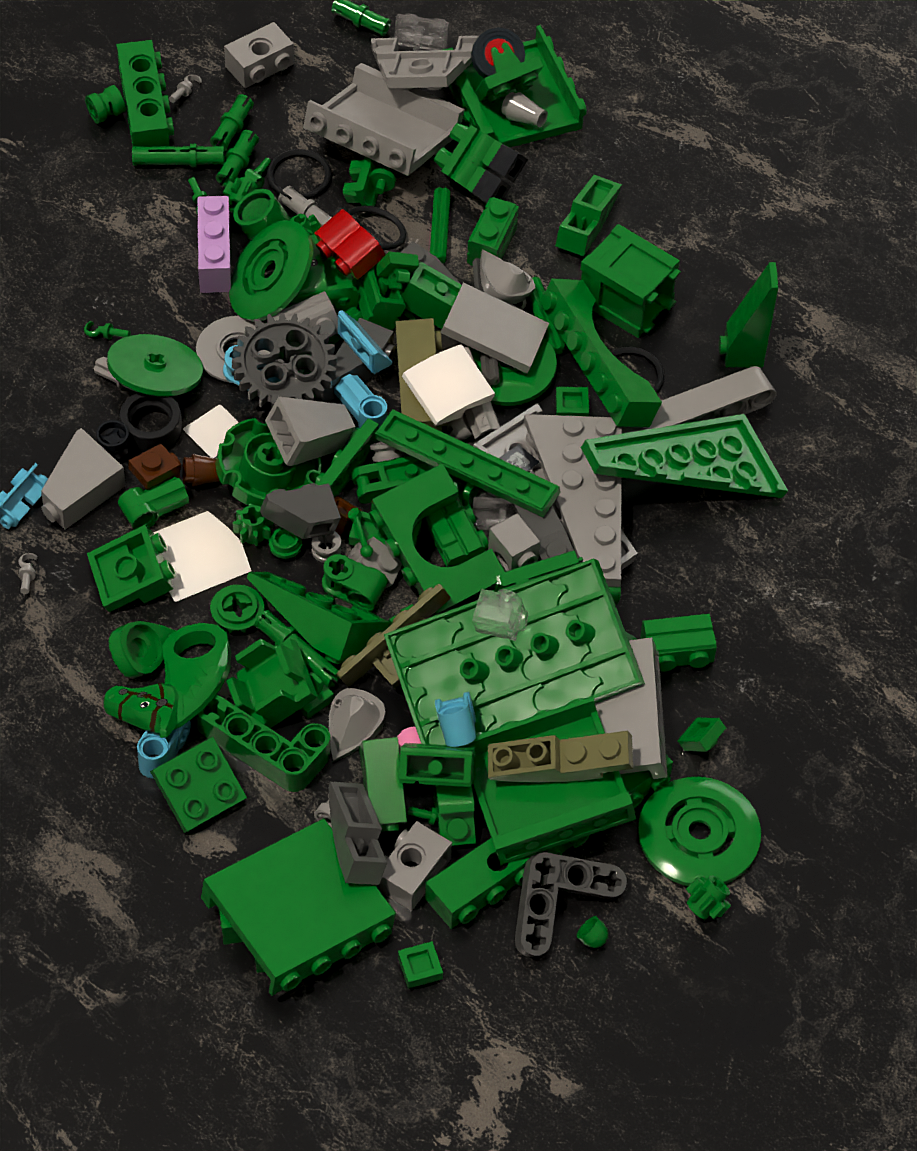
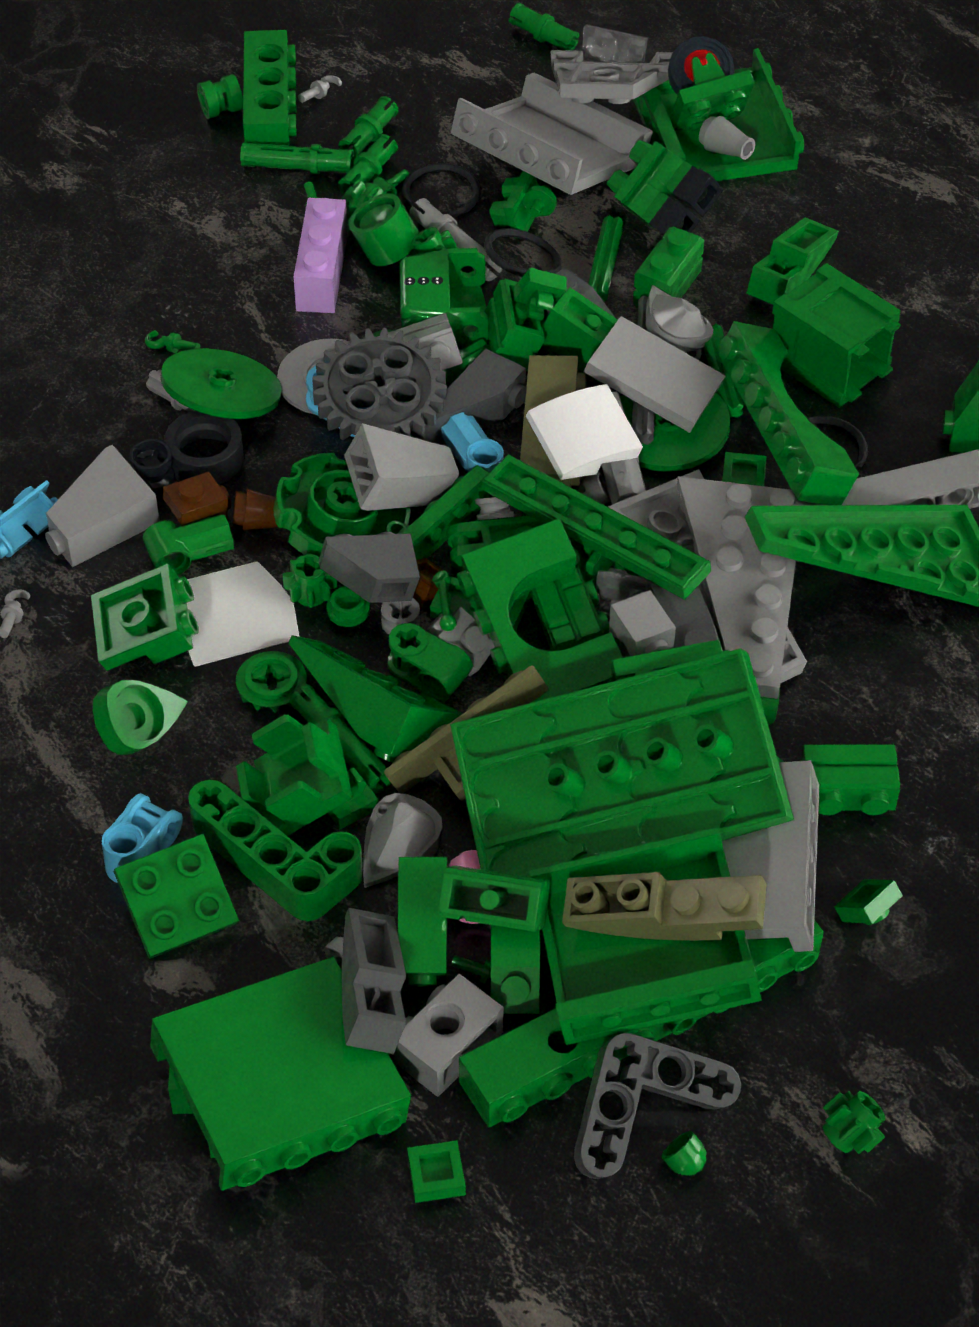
camera: 10 degrees right, 5 degrees down
(187, 686) = (184, 766): green animal -> none
(211, 429) = (276, 463): white sticker -> none
(259, 55) = (414, 58): light grey brick -> none
(291, 250) = (407, 261): green piece -> none
(349, 245) = (482, 260): red brick -> none
(362, 343) = (482, 376): medium azure slope -> none
(457, 720) = (530, 841): medium azure piece -> none
(500, 614) = (605, 708): clear brick -> none
(520, 457) = (668, 528): black sticker -> none
(708, 802) = (863, 990): green piece -> none

